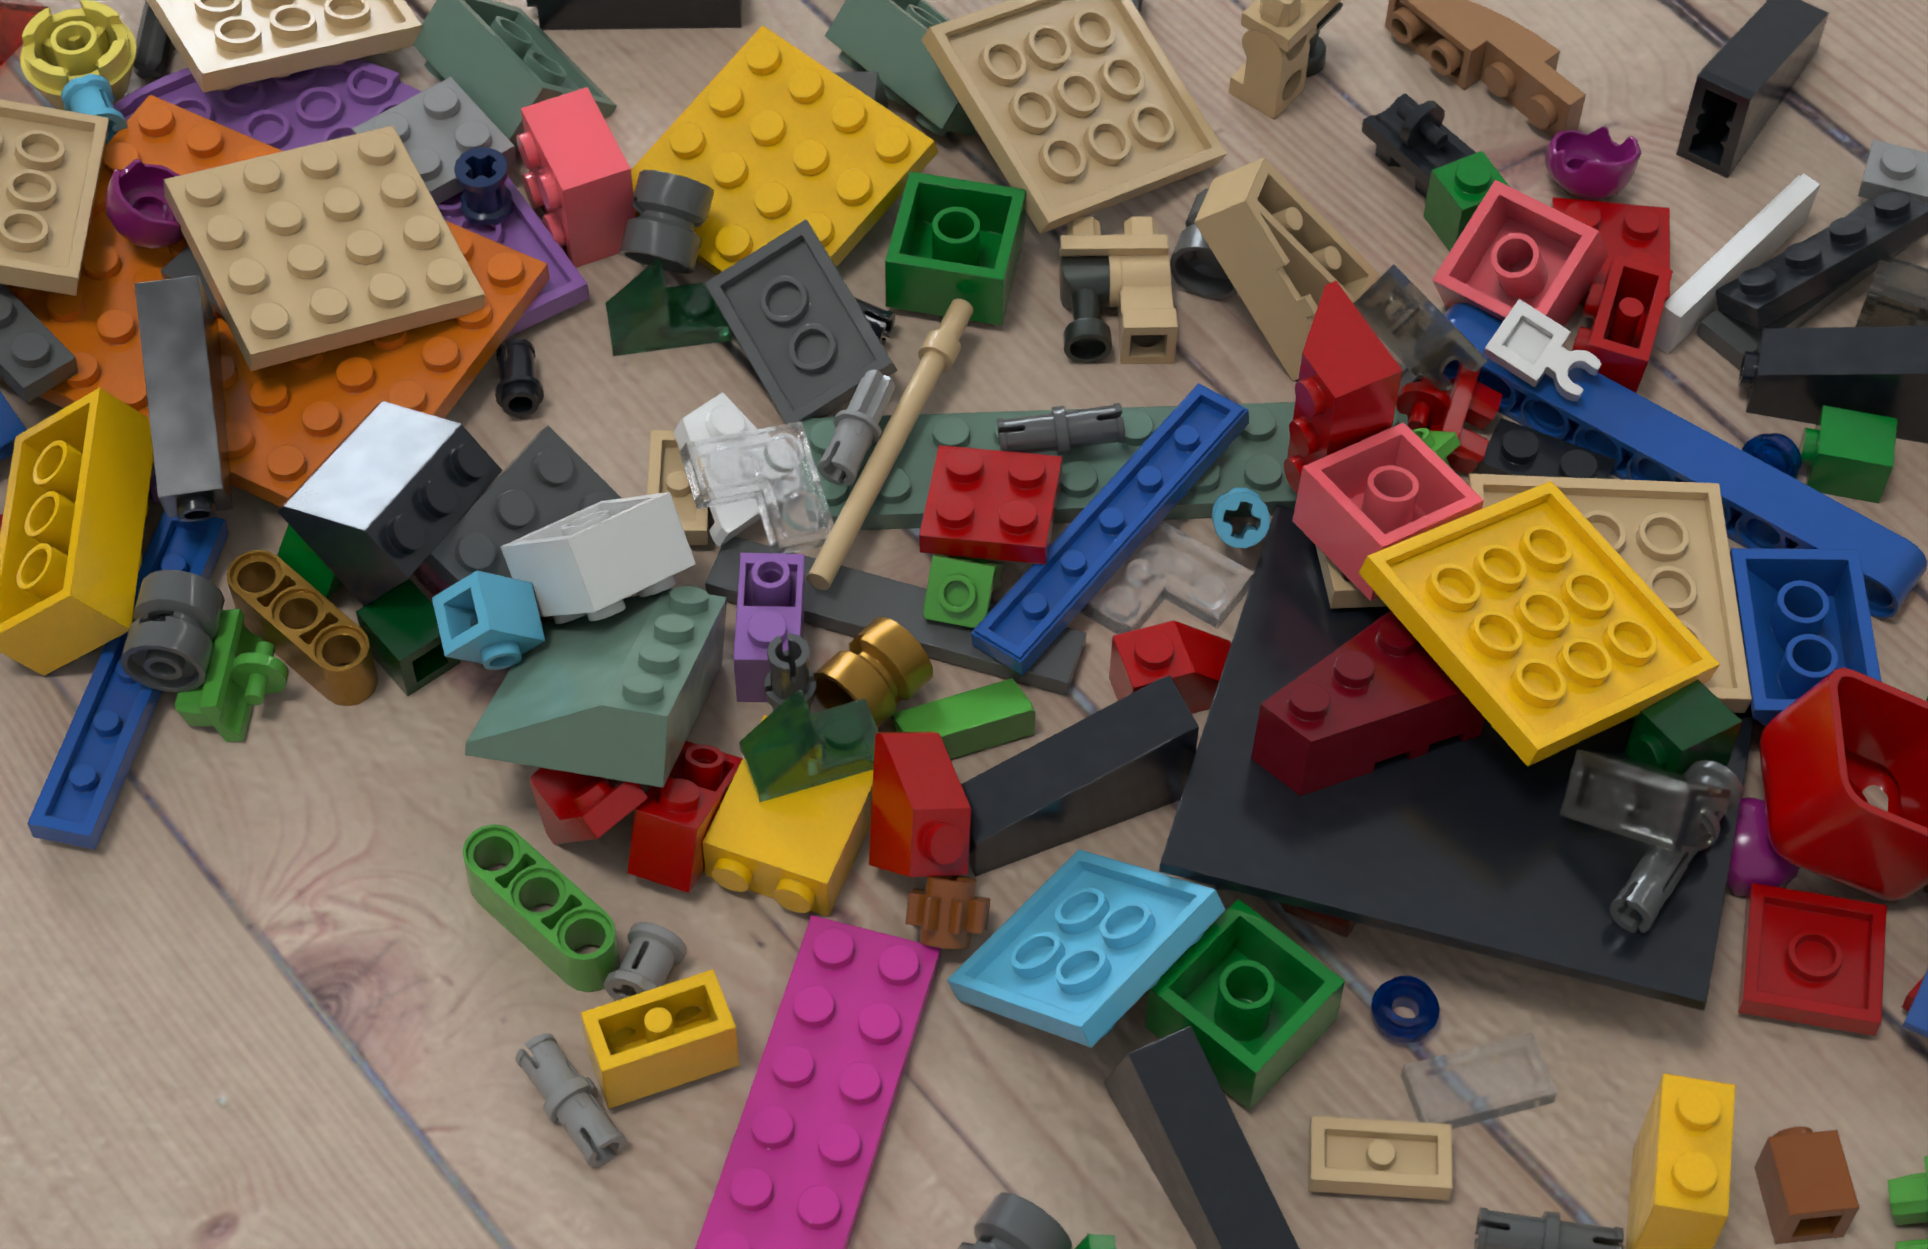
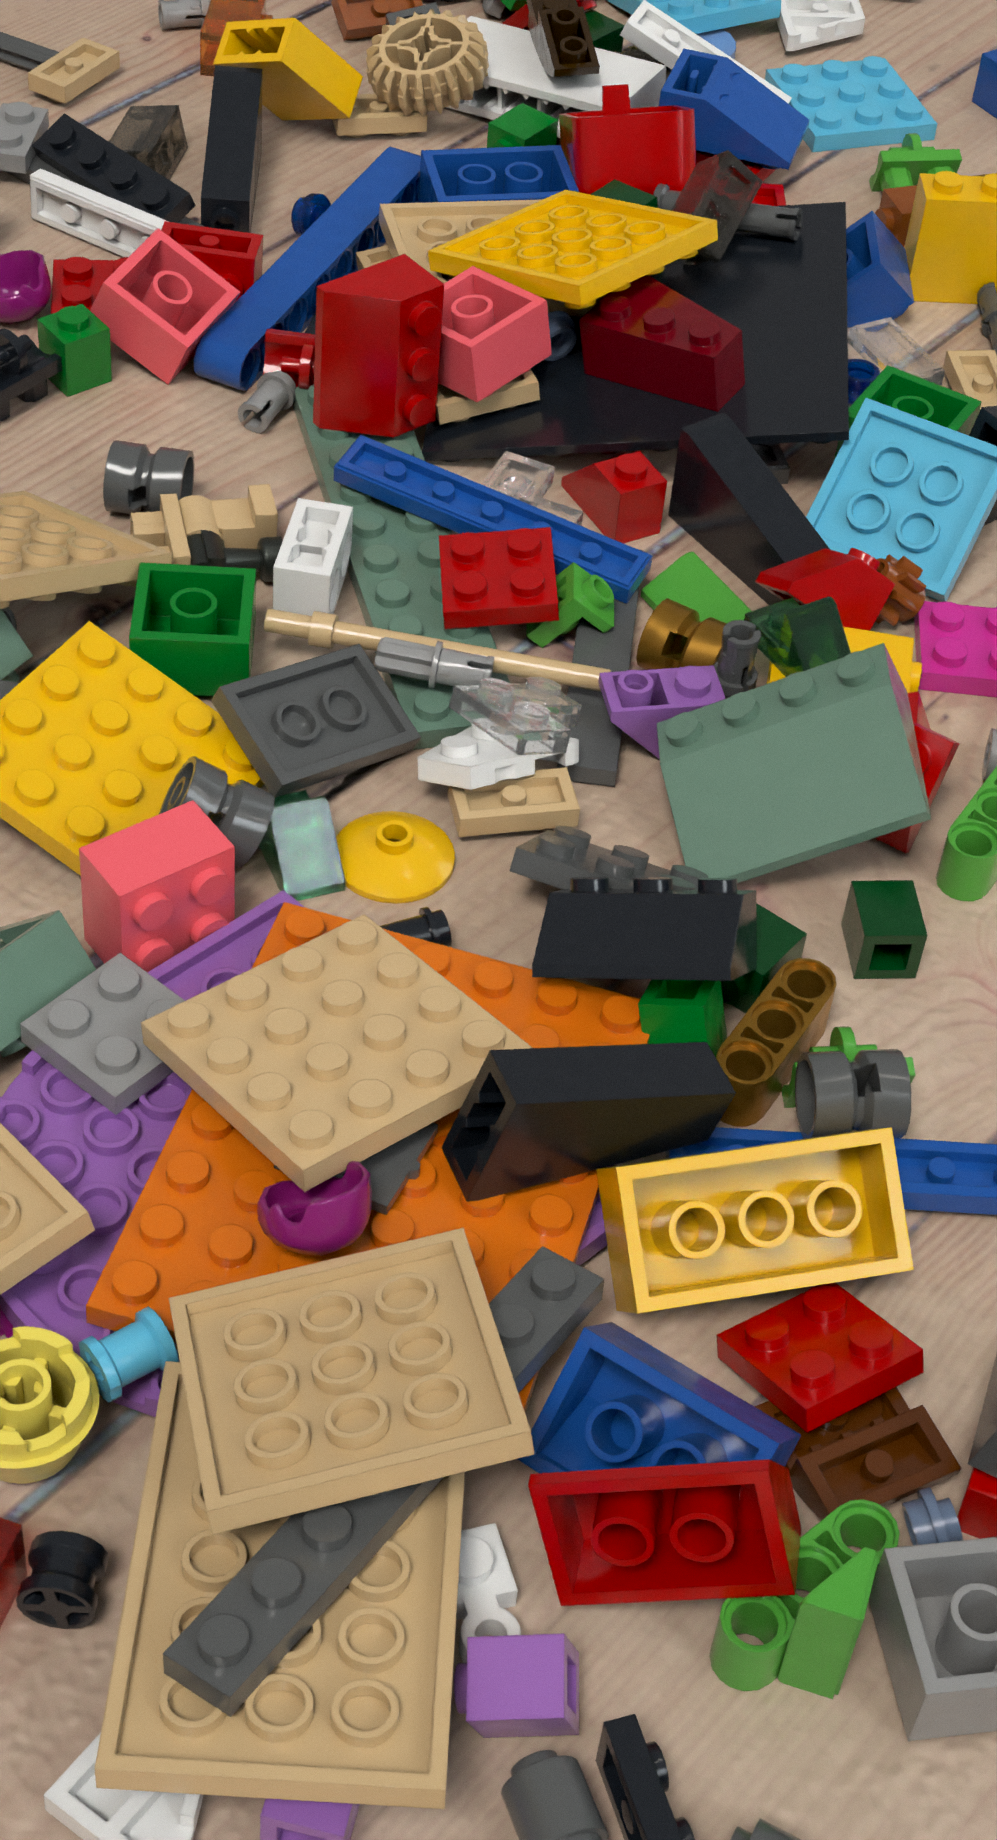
camera: 105 degrees left, 10 degrees down
(420, 759) = (883, 929): none -> dark green brick
(482, 177) = (183, 951): dark blue bush -> none
(488, 620) = (758, 855): medium azure brick -> none
(602, 557) = (660, 789): white brick -> none
(629, 411) = (395, 857): none -> yellow dish
(1049, 355) = (313, 558): none -> white brick
(1062, 430) = (405, 543): dark grey pin -> none
(1250, 534) = (459, 450): medium azure bush -> none
(1278, 254) = (202, 412): tan wedge -> none
(1416, 328) = (255, 341): clear smoke hinge -> none
(1533, 346) = (263, 287): white plate -> none
(1622, 1049) = (876, 273): none -> blue slope
(1849, 453) = (295, 175): green brick -> none

